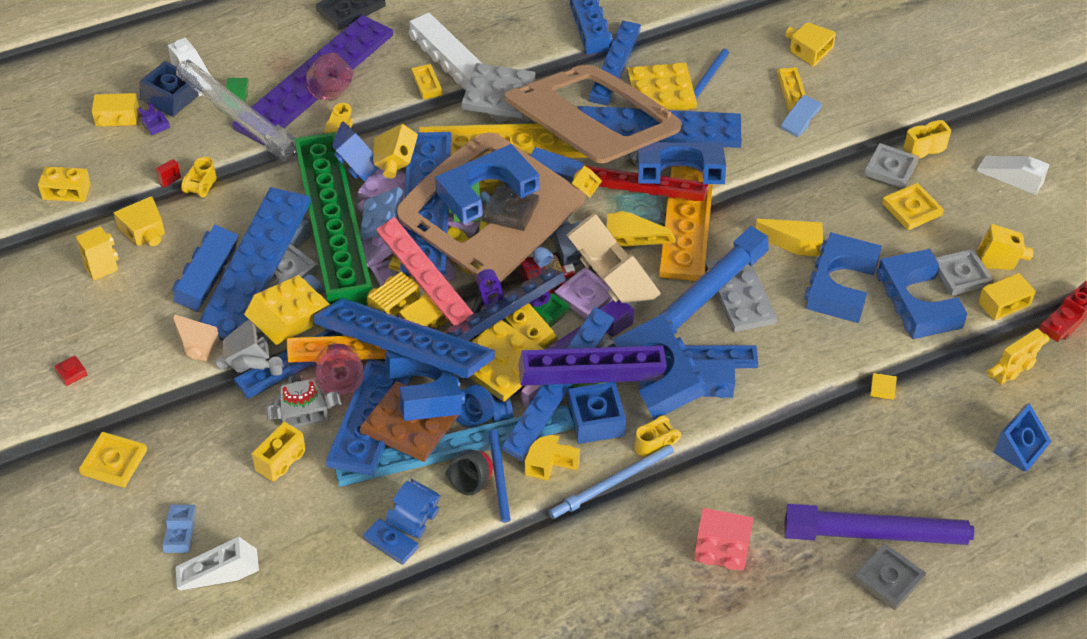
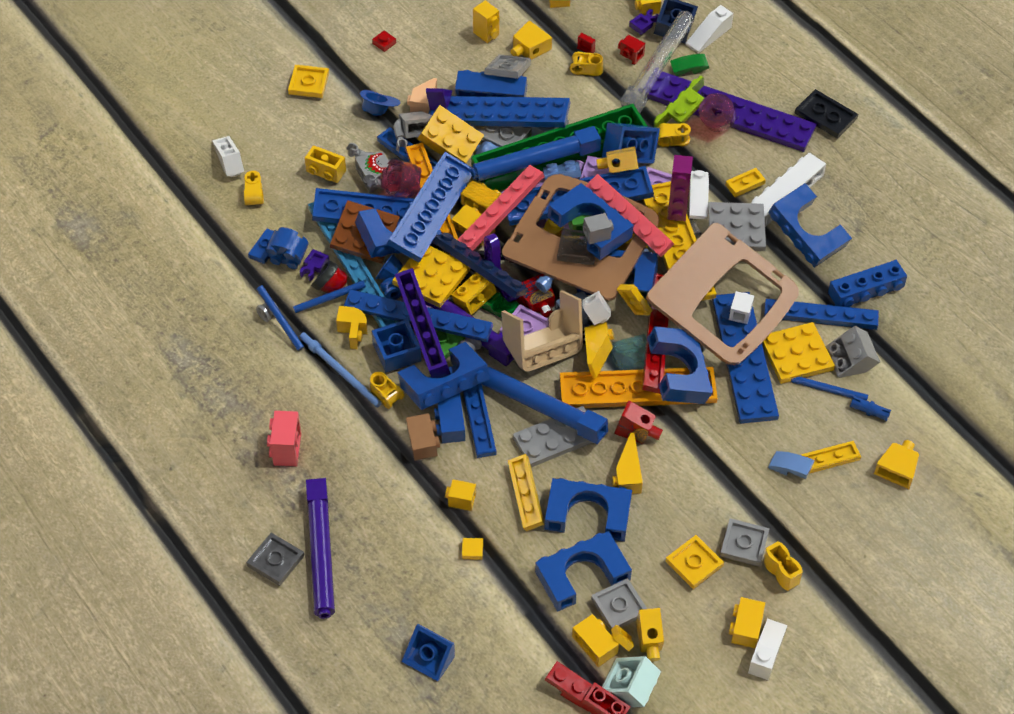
camera: 80 degrees right, 5 degrees up
(179, 528) = (263, 130): medium blue slope -> none
(183, 243) = (508, 66): none -> light grey tile
(188, 383) = (377, 103): none -> blue piece
(194, 135) = (632, 48): none -> red brick
(214, 312) = (438, 97): none -> dark purple slope
(293, 542) = (253, 189): none -> yellow piece
(307, 100) = (684, 106): none -> lime bracket
(354, 228) = (582, 142): none -> blue brick
(436, 112) = (698, 195): none -> white slope
(441, 485) = (313, 262): none -> dark purple plate
(464, 100) = (679, 187): none -> magenta brick
(491, 49) = (814, 248): none -> blue arch
(505, 545) = (264, 312): none -> light grey wheel
(518, 166) = (597, 228): none -> light grey brick
(521, 138) = (642, 226): none -> coral plate
(527, 528) = (280, 318): none -> blue bar
(596, 205) = (596, 308): none -> white brick
(607, 107) = (741, 307): none -> white brick
(674, 45) = (853, 353): none -> light grey slope
(733, 406) = (422, 437): none -> medium nougat brick
(739, 50) = (870, 408): none -> blue pin
(741, 211) = (637, 421): none -> red torso
(815, 382) = (461, 495): none -> yellow brick
(816, 326) = (525, 492): none -> yellow plate
(986, 179) = (748, 622): none -> yellow brick
(1006, 272) = (622, 637): none -> yellow tile
(1018, 357) = (515, 644): yellow plate -> none
(1054, 277) = (632, 680): none -> light aqua slope

